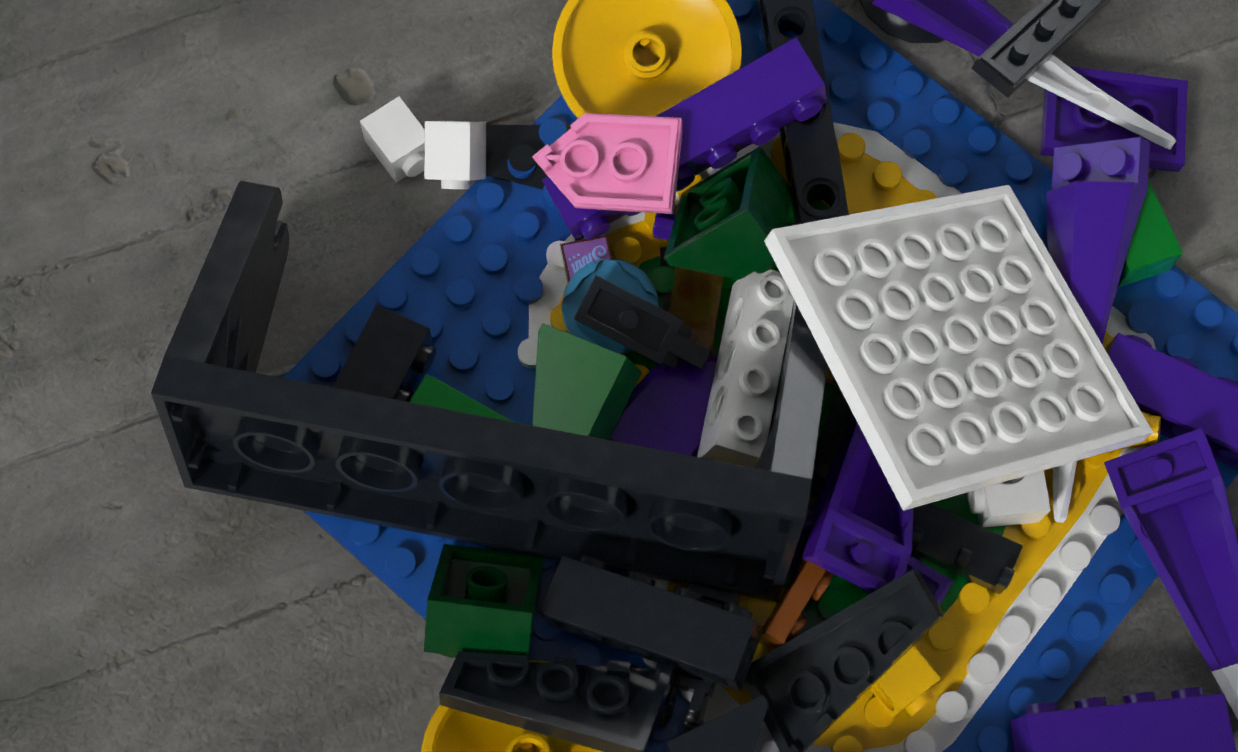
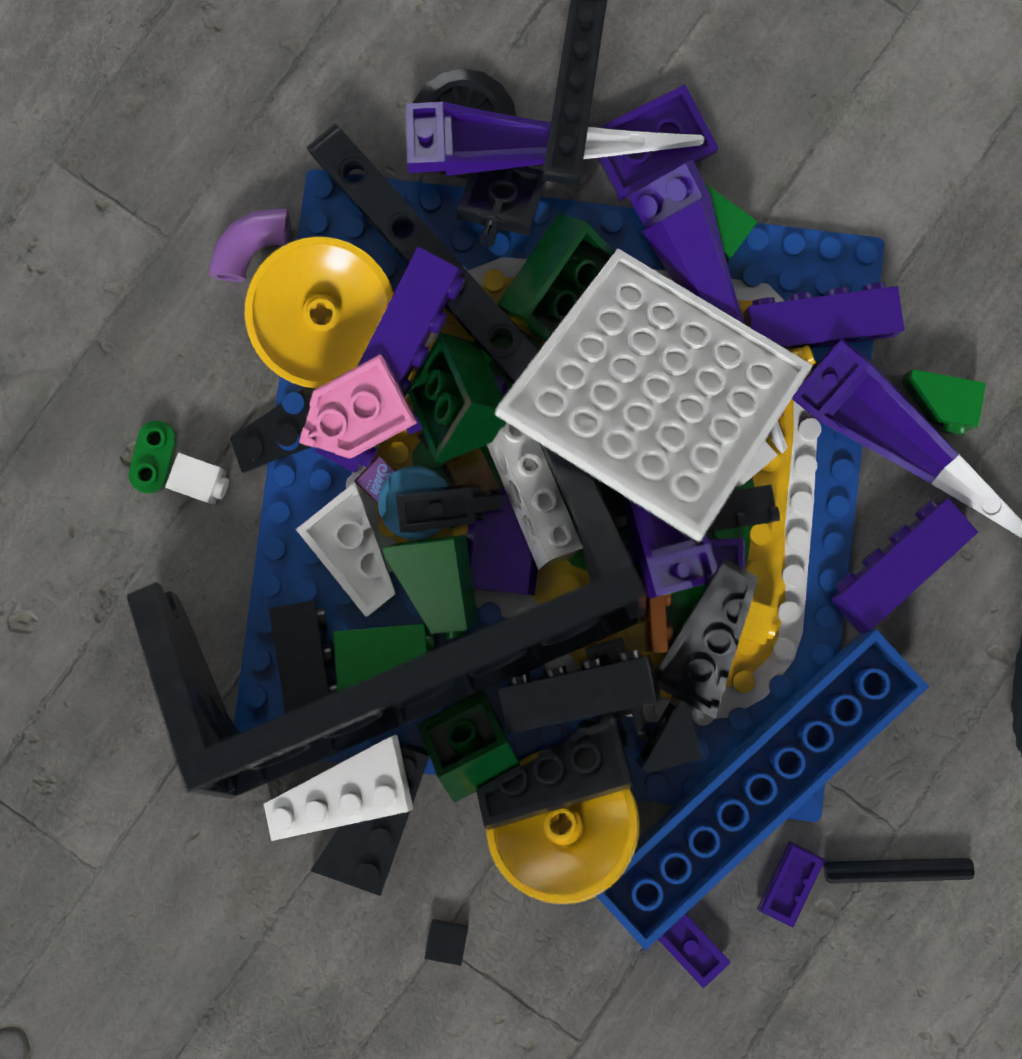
camera: 30 degrees left, 15 degrees up
(311, 628) = (365, 850): none -> black wing
(312, 563) = (351, 792): none -> white wing
(368, 91) = (156, 457): none -> green plate
(455, 152) = (242, 465): white brick -> none
(505, 310) = (349, 550): none -> white wing
(915, 67) = (502, 201): none -> black plate
(923, 167) = (555, 276): none -> dark green slope

